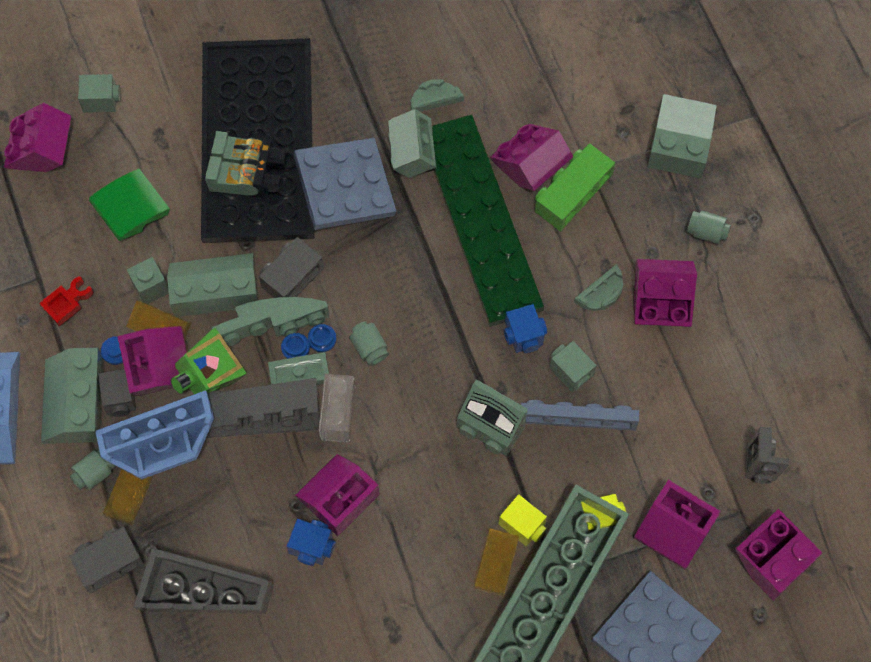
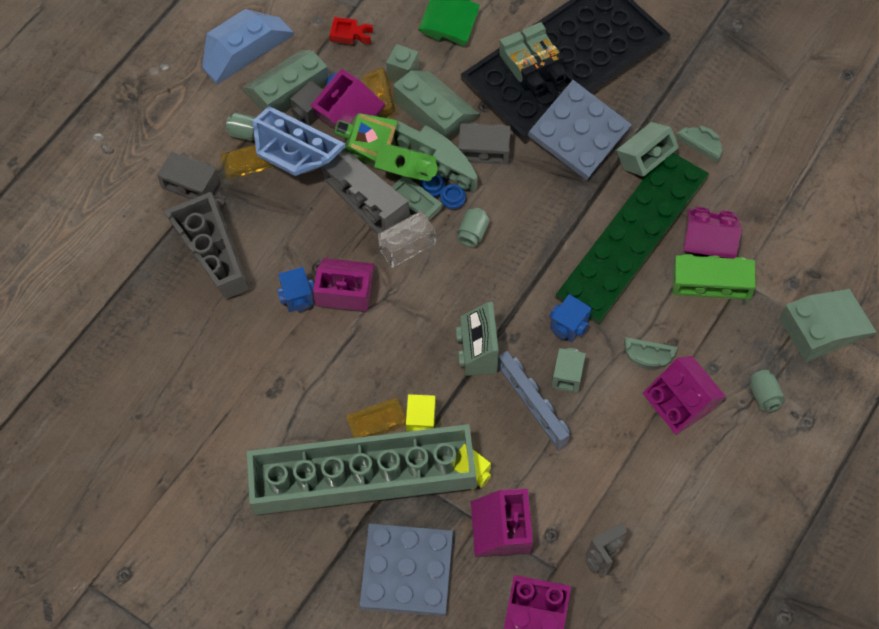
camera: 55 degrees right, 5 degrees down
(266, 350) = (417, 164): none -> bright green torso

